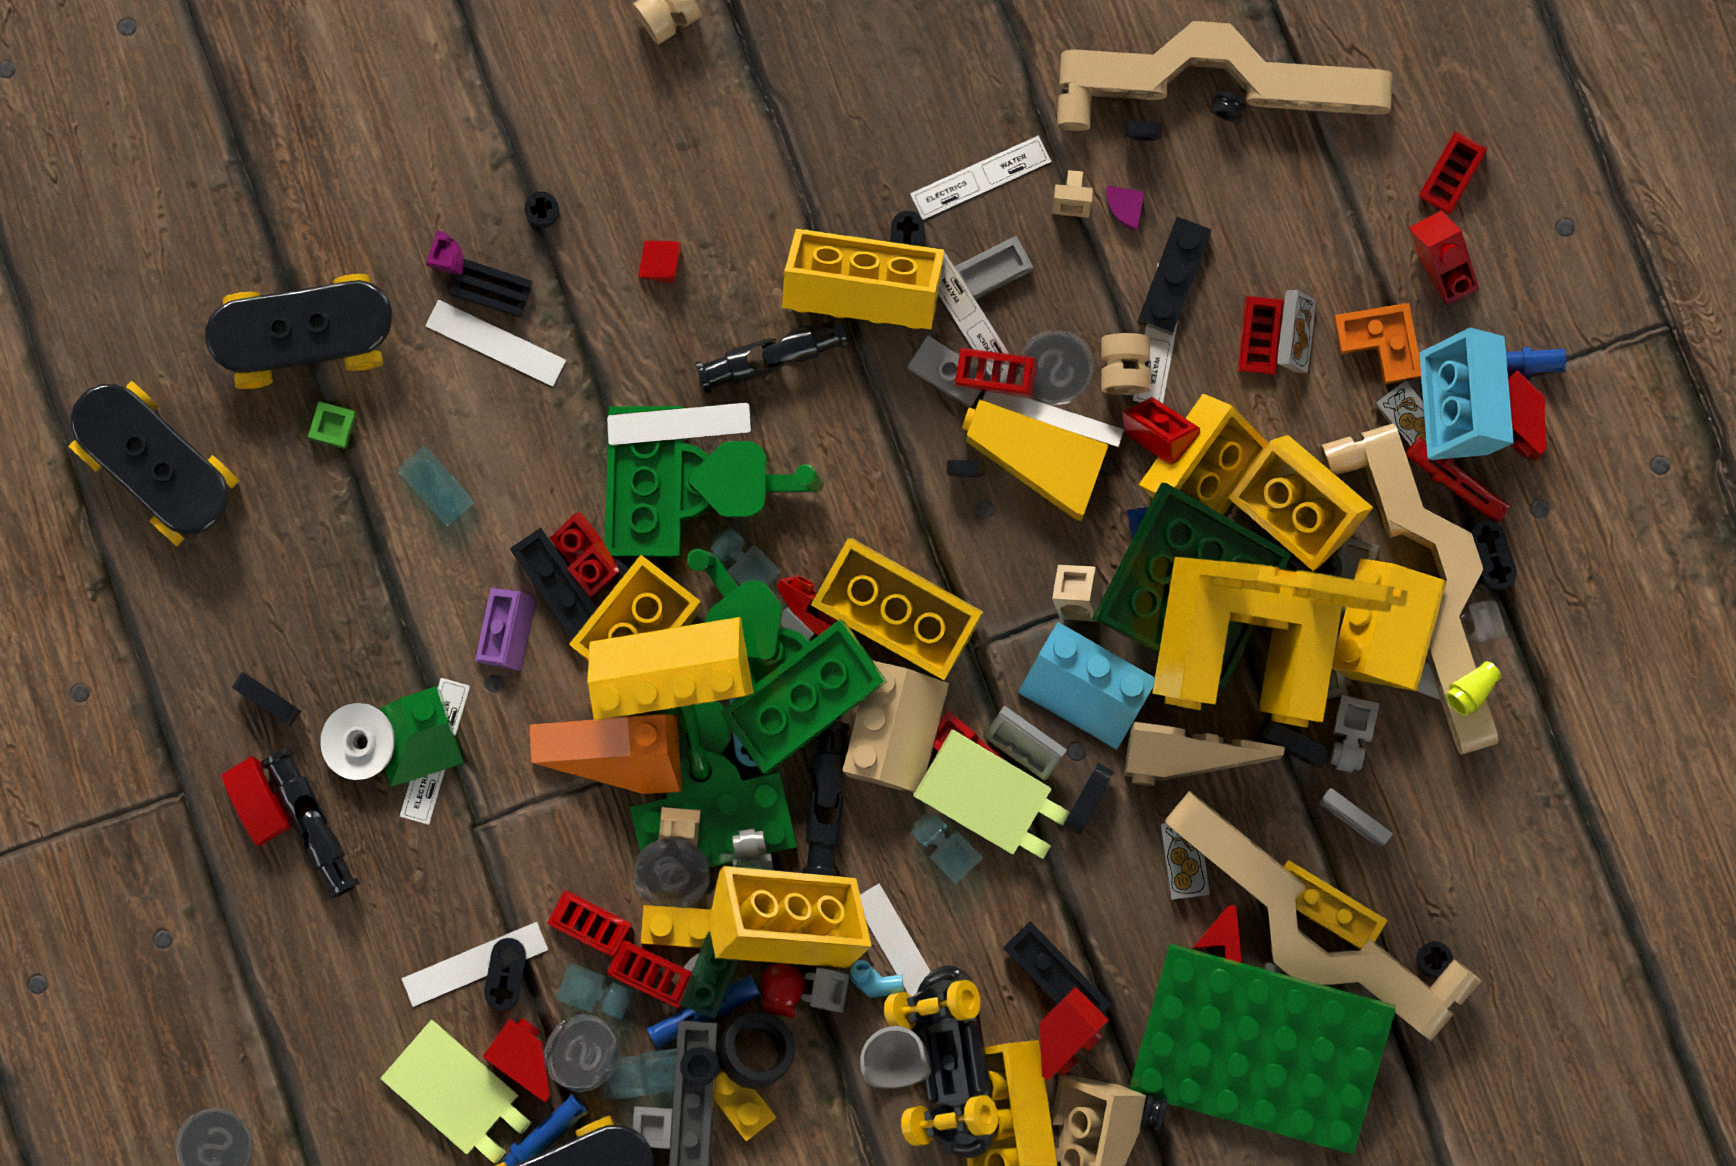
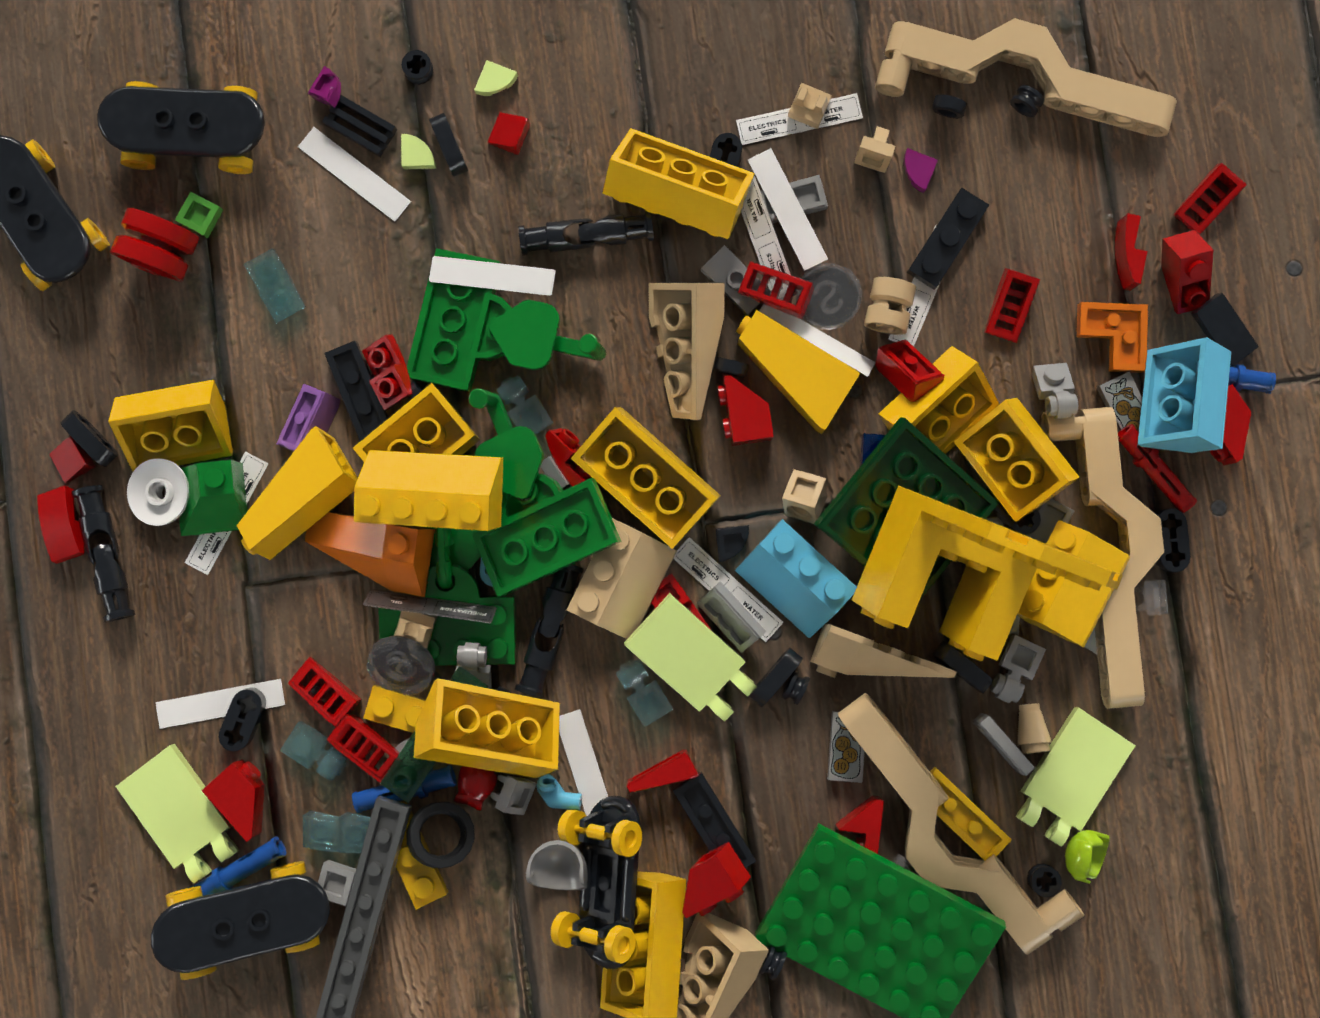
camera: 15 degrees right, 5 degrees up
(248, 728) = (71, 460): none -> red slope
(298, 468) = (154, 247): none -> red wheel
(357, 663) = (172, 424): none -> yellow slope
(517, 711) = (298, 495): none -> yellow slope
(561, 306) = (415, 153): none -> yellowish green tile
(582, 1053) = (291, 803): clear tile -> none
(596, 289) = (448, 144): none -> black beam
(631, 205) = (494, 79): none -> yellowish green tile
(691, 799) = (430, 606): none -> flat silver sticker
(700, 1066) = (385, 843): black tile -> none
(909, 438) = (688, 332): none -> tan wedge
(988, 161) = (809, 105): none -> tan tile
(989, 281) = (787, 209): none -> white sticker
(990, 701) = (710, 573): none -> white sticker
(993, 515) = (747, 413): none -> red slope
(996, 925) = (670, 770): none -> red slope
(1006, 661) = (731, 541): none -> black tile
(1113, 805) = (795, 687): none -> black bush
(1296, 331) = (1044, 308): tile -> none
(1328, 416) = (1056, 386): none -> light grey plate
(1378, 257) = (1129, 260): none -> red slope
(1385, 797) = (1032, 730): none -> tan cone
(1442, 834) = (1074, 774): none -> yellowish green tile
(1472, 690) = (1134, 658): neon yellow cone -> none
(1473, 918) = (1086, 854): none -> lime hair
(1500, 312) = (1225, 327): none -> black tile

